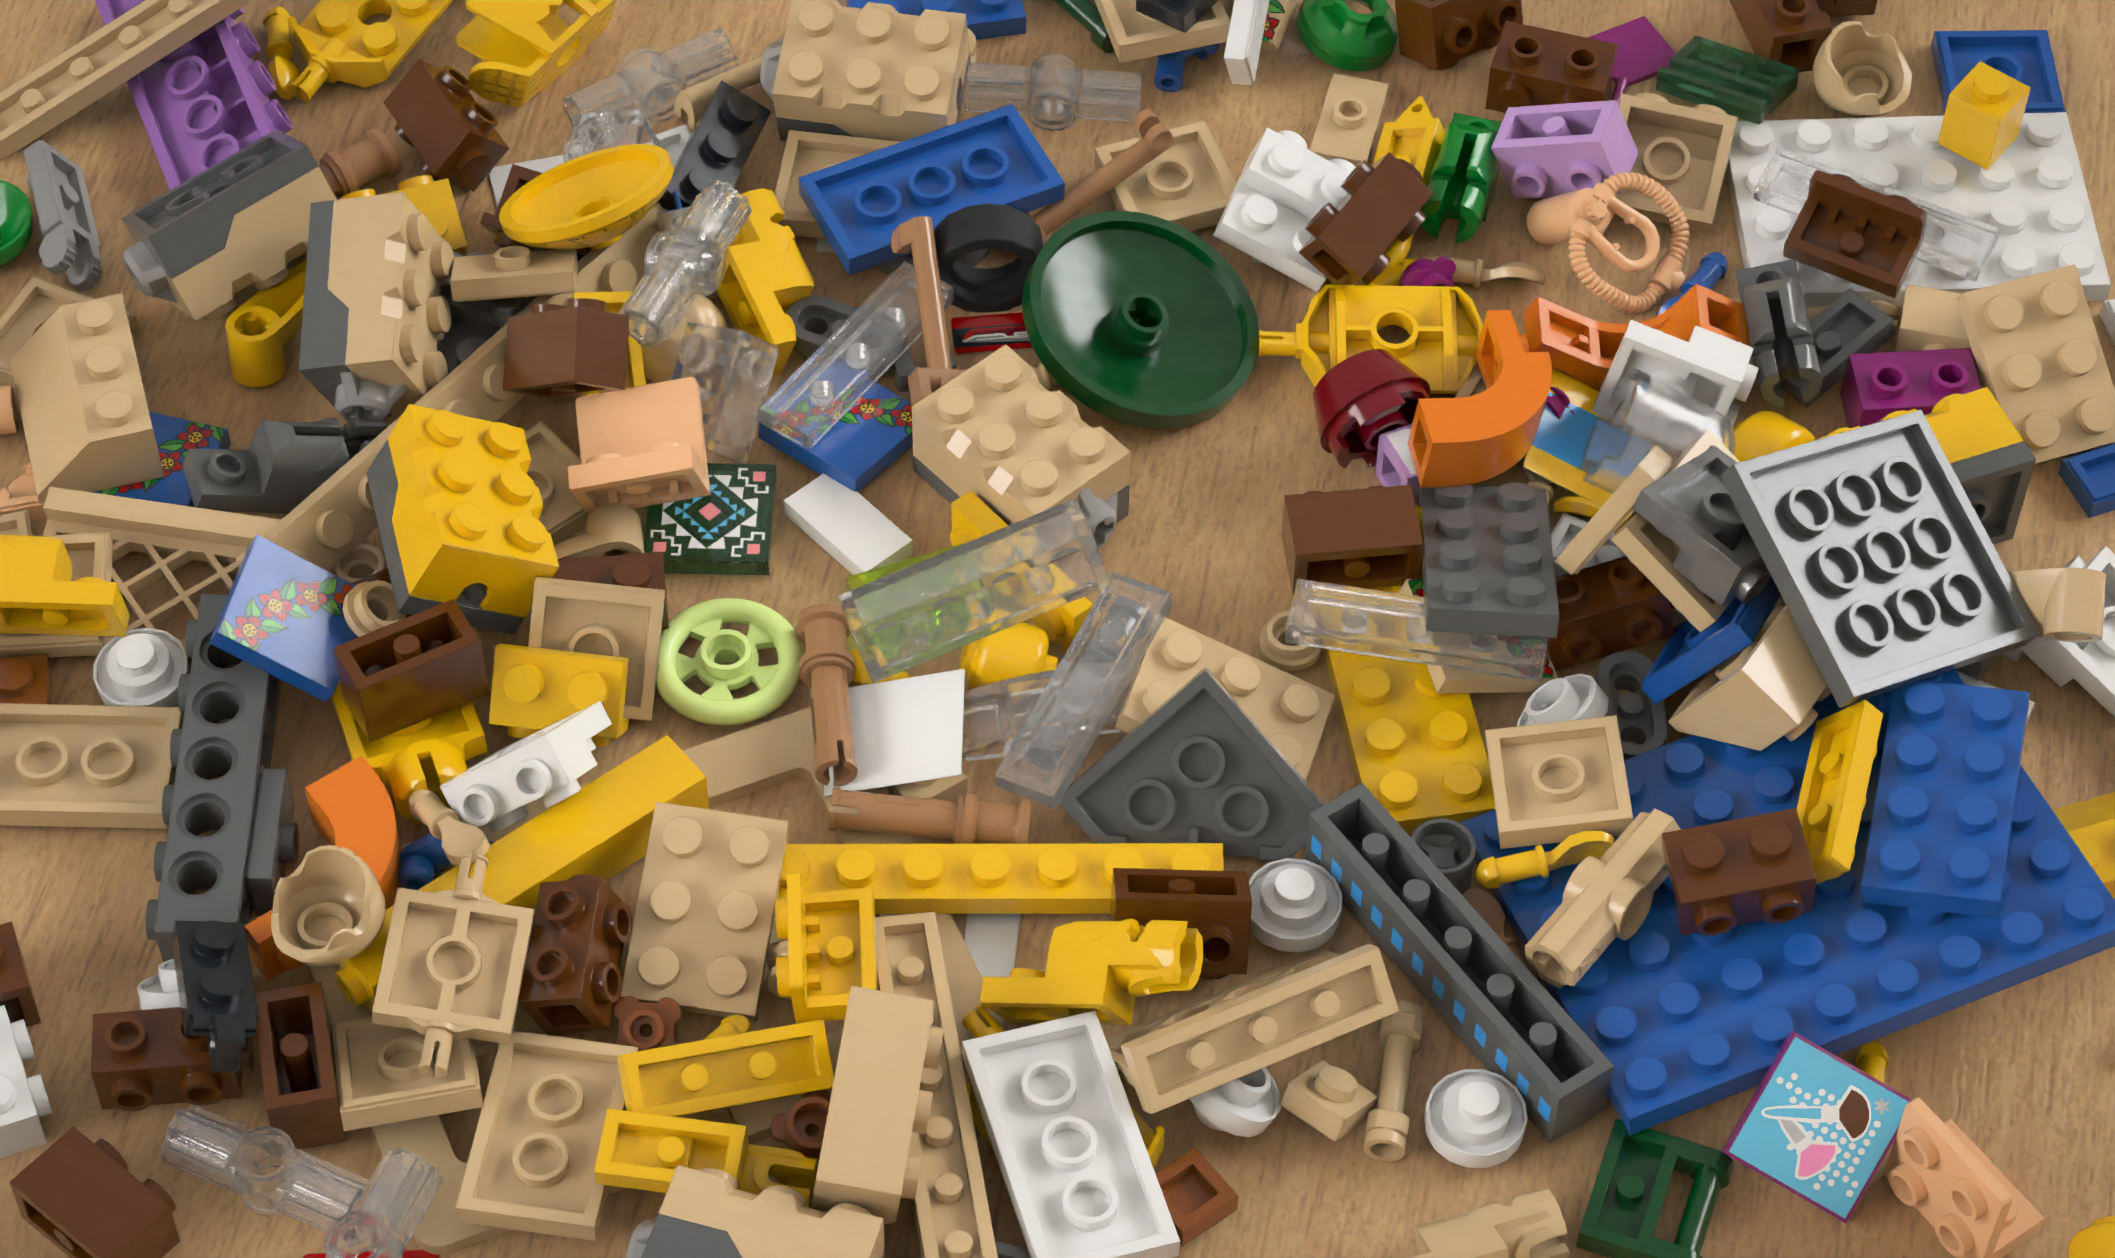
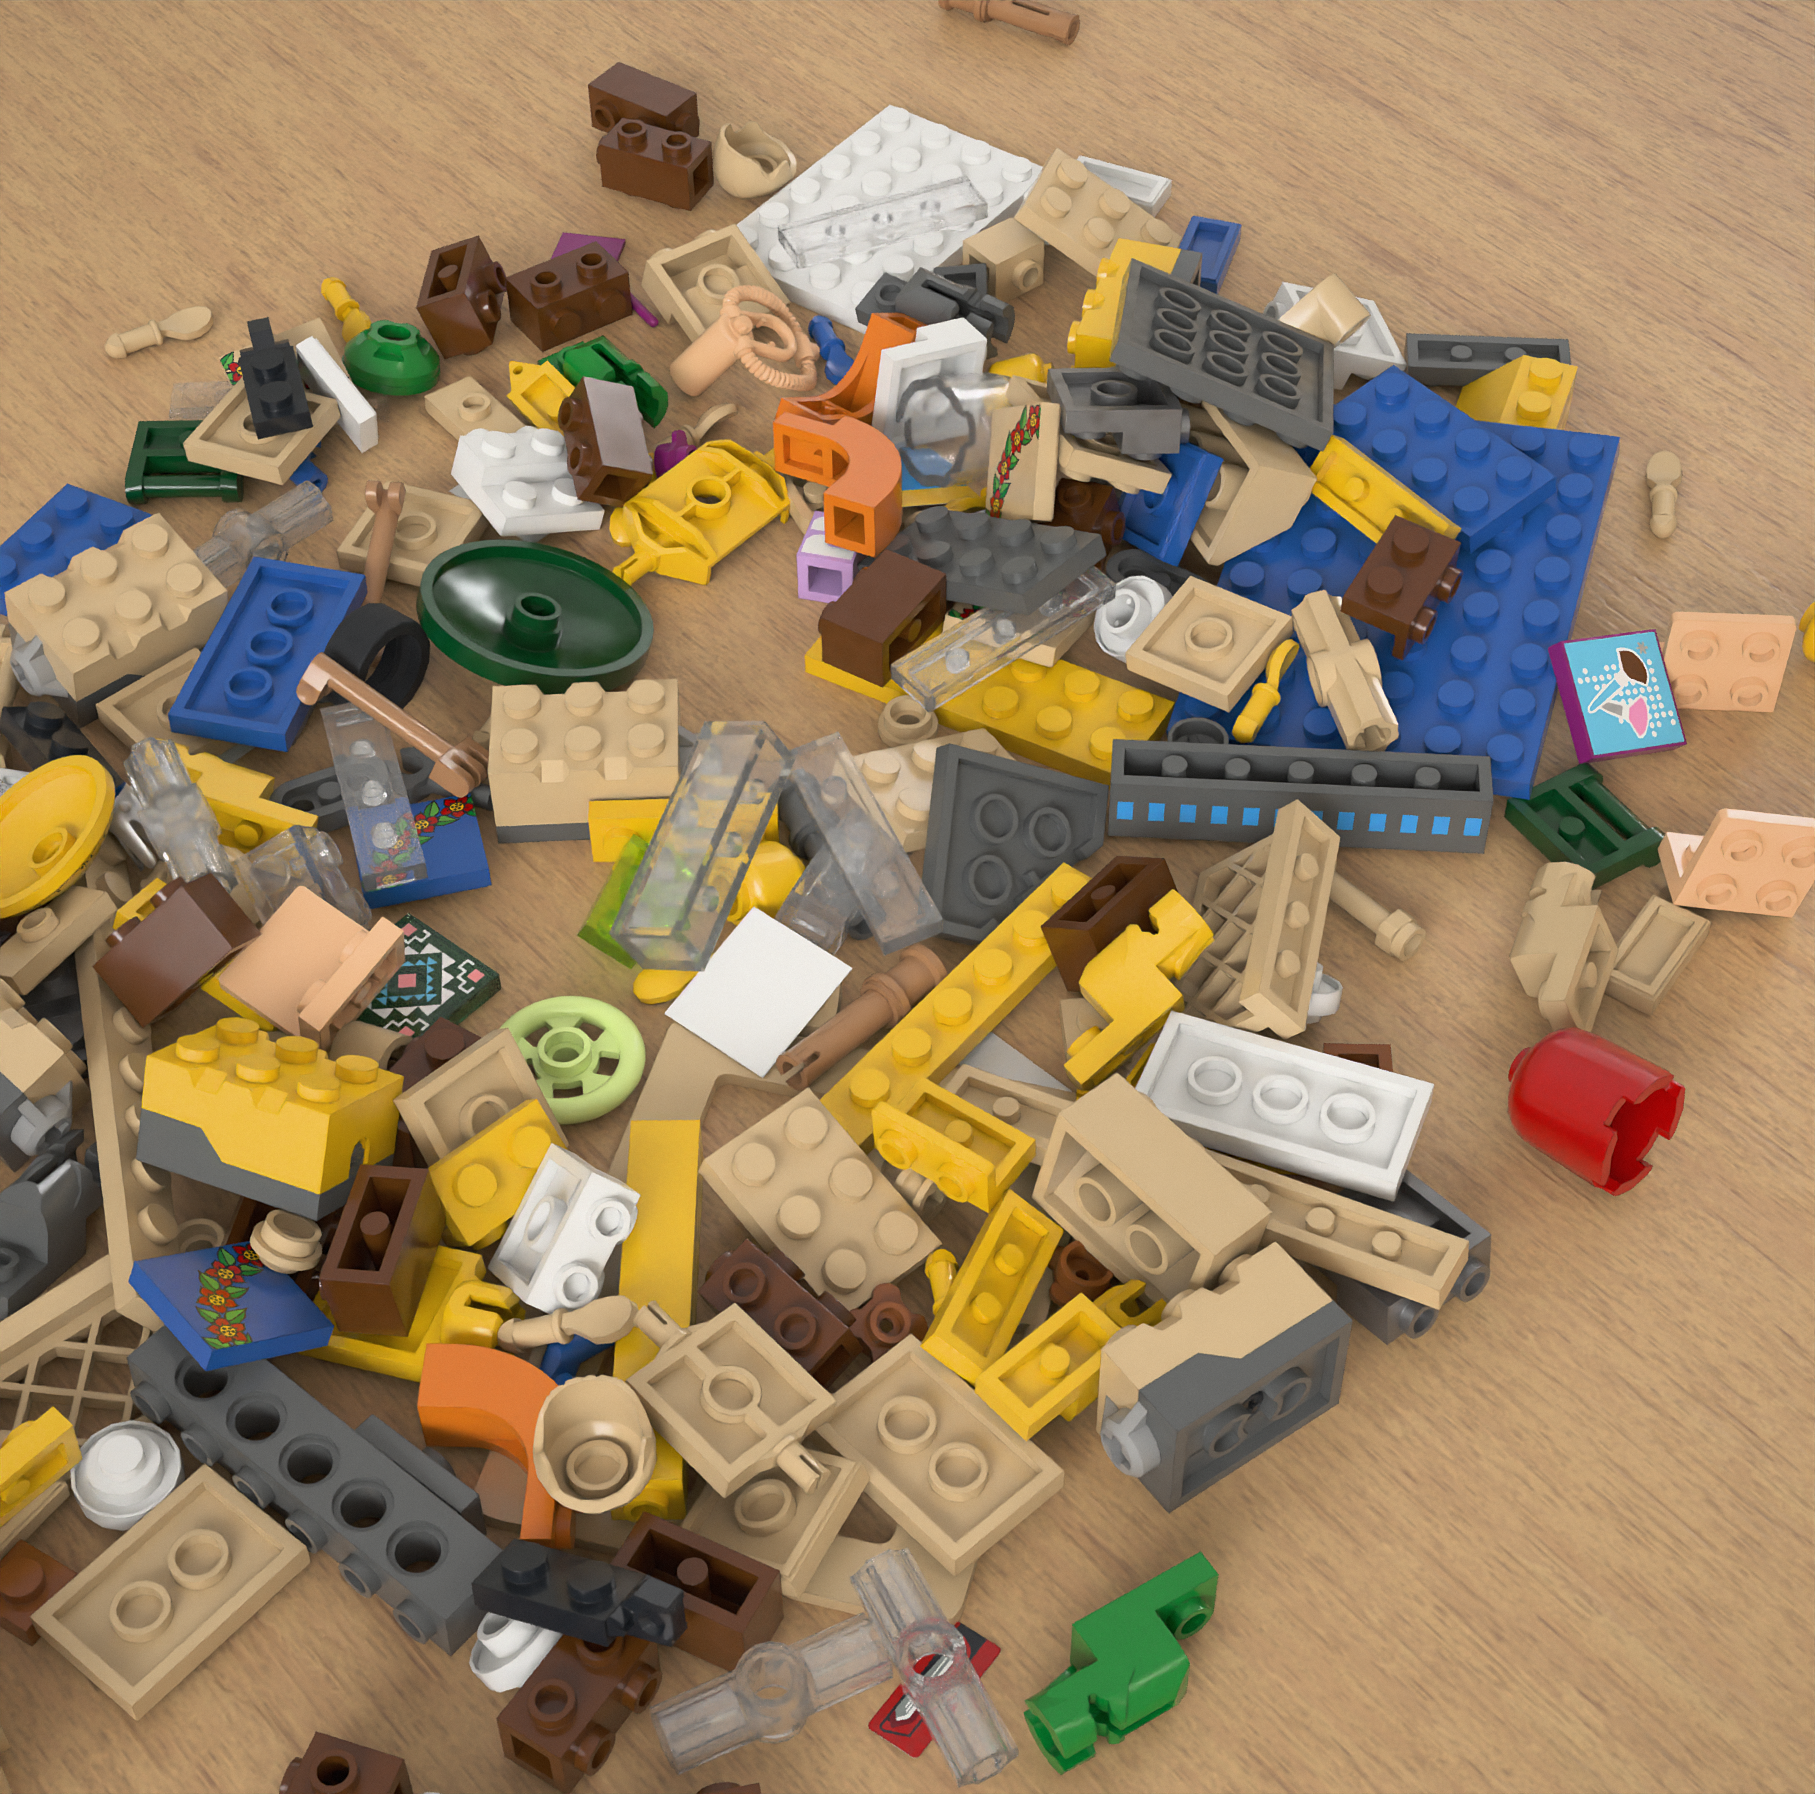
camera: 50 degrees left, 5 degrees down
(827, 672) = (657, 996): medium nougat pin -> none
(847, 526) = (515, 910): white tile -> none
(989, 333) = (443, 701): sticker -> none
(1294, 905) = (1157, 841): white plate -> none
(1328, 1100) = (1350, 945): tan plate -> none
(1365, 399) = (762, 544): dark red cone -> none
(1475, 1118) = (1433, 876): white plate -> none
(1562, 147) = (660, 313): lavender brick -> none
(1727, 79) = (677, 219): clear green plate -> none
(1856, 233) = (900, 230): reddish brown bracket -> none
(1903, 381) = (1047, 301): magenta brick -> none
(1983, 115) = (870, 122): yellow brick -> none
(2017, 53) = (816, 115): blue tile -> none

